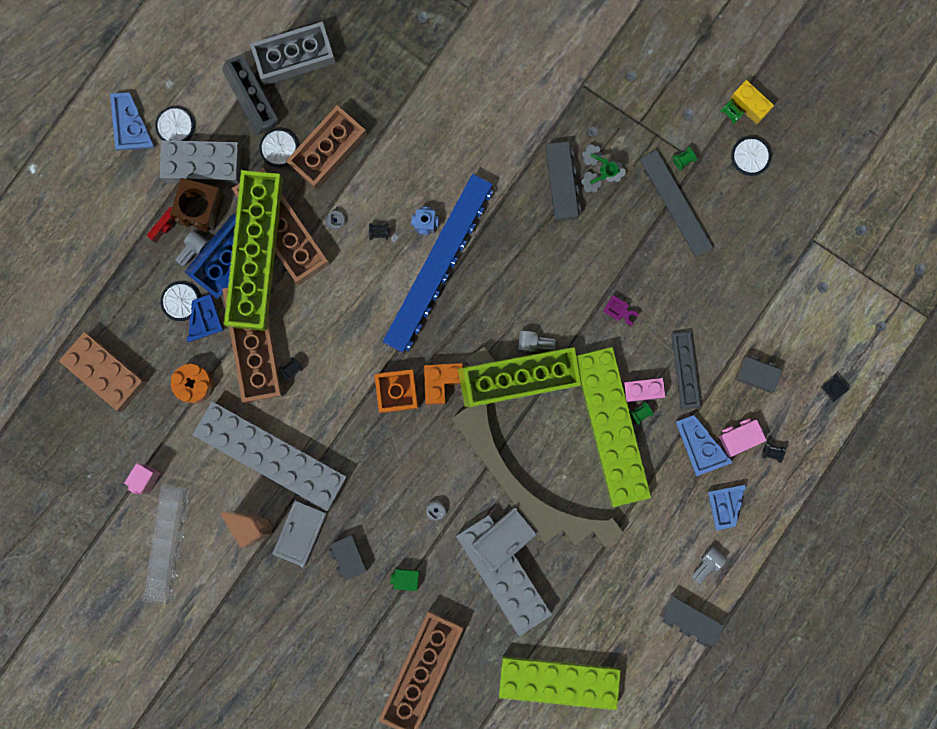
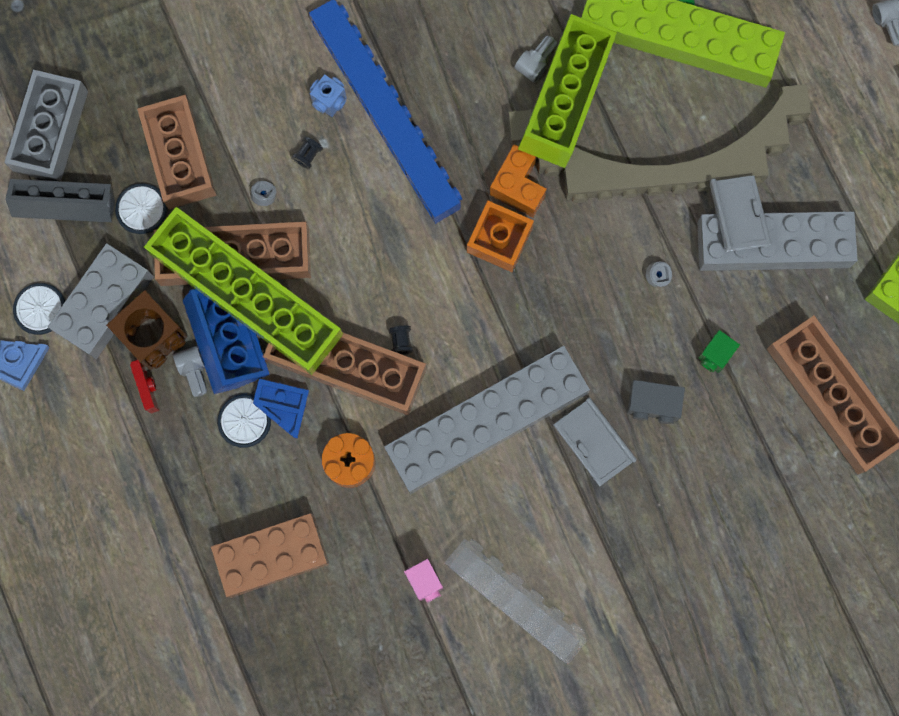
camera: 60 degrees left, 5 degrees down
(246, 527) = (558, 485): nougat slope -> none

